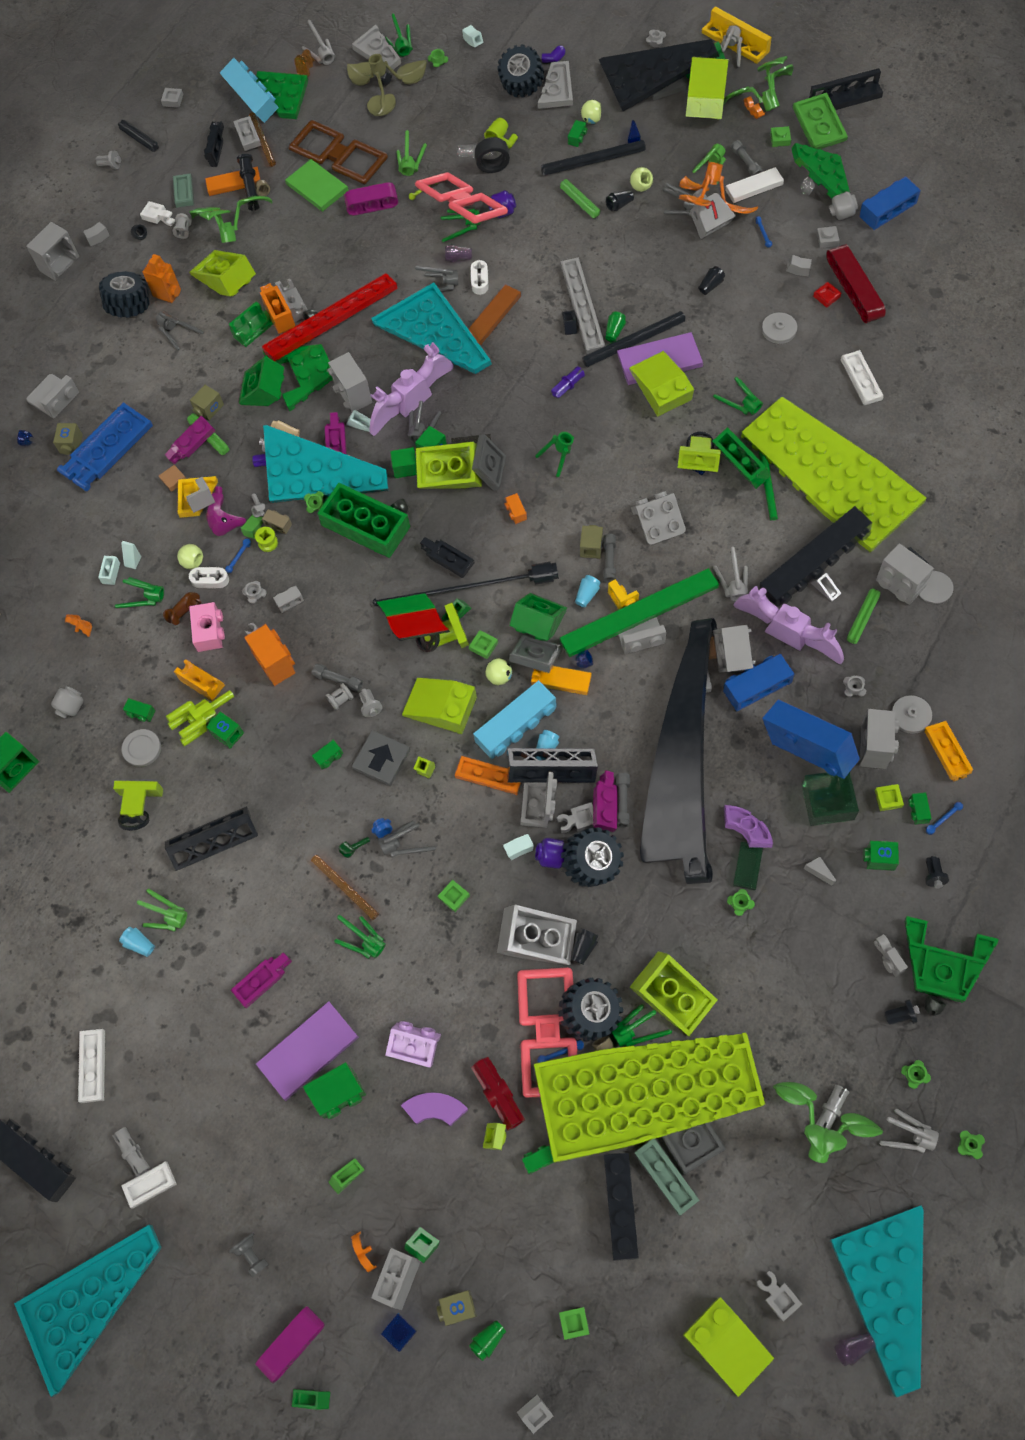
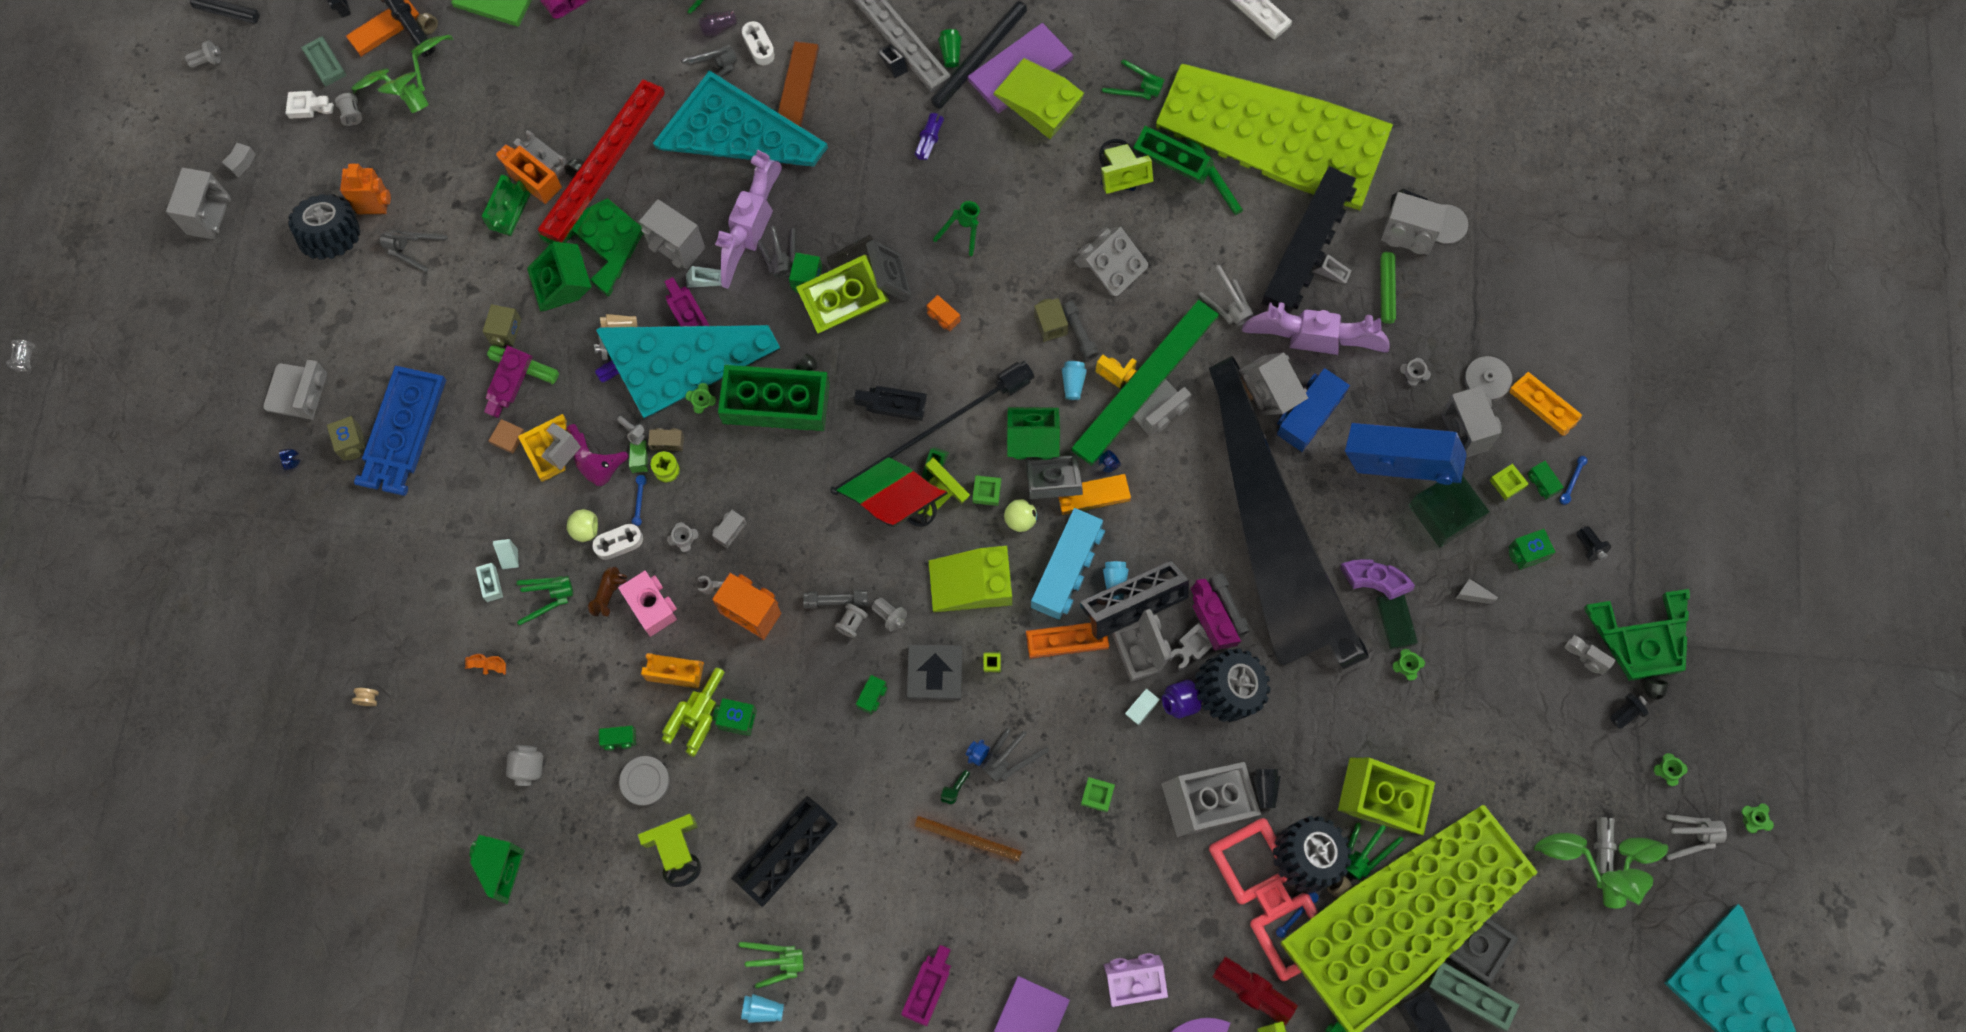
camera: 30 degrees left, 5 degrees up
(140, 229) = (295, 132): black hinge -> none
(224, 272) = (435, 150): lime slope -> none
(372, 946) = (1034, 889): green plant -> none
(404, 462) = (785, 308): green brick -> none

